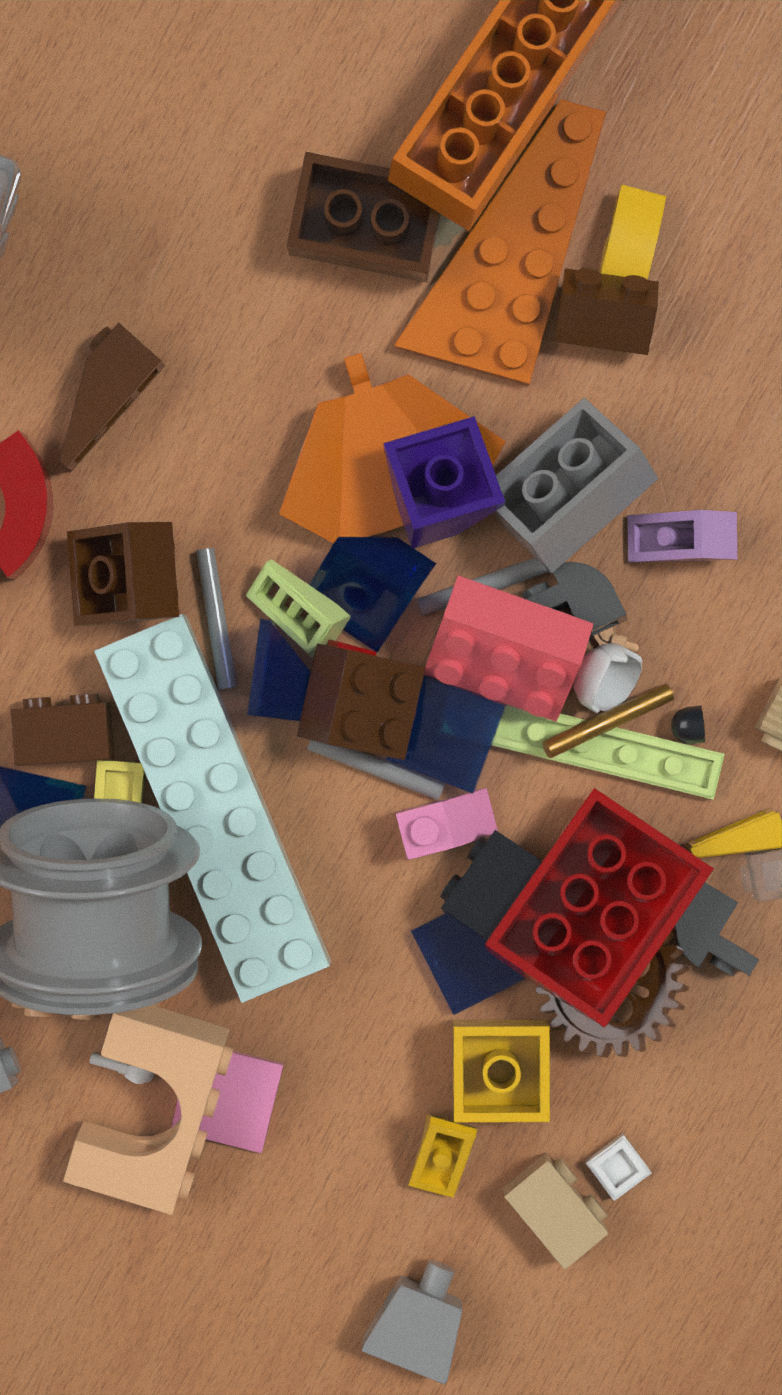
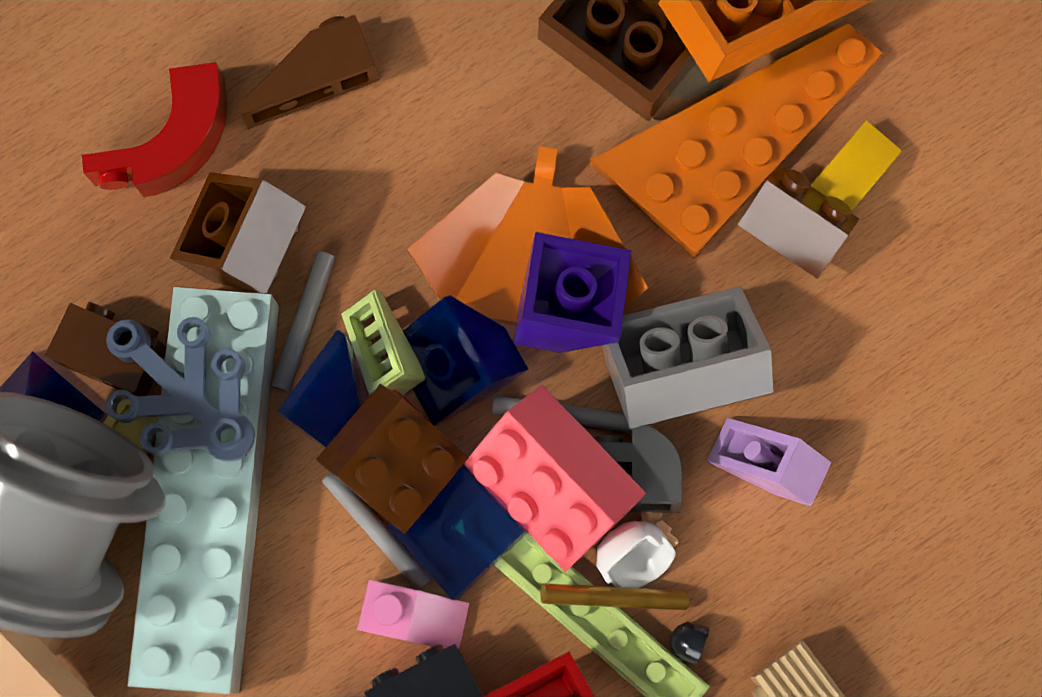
camera: 25 degrees right, 10 degrees down
(159, 739) = (185, 395): none -> sand blue plant

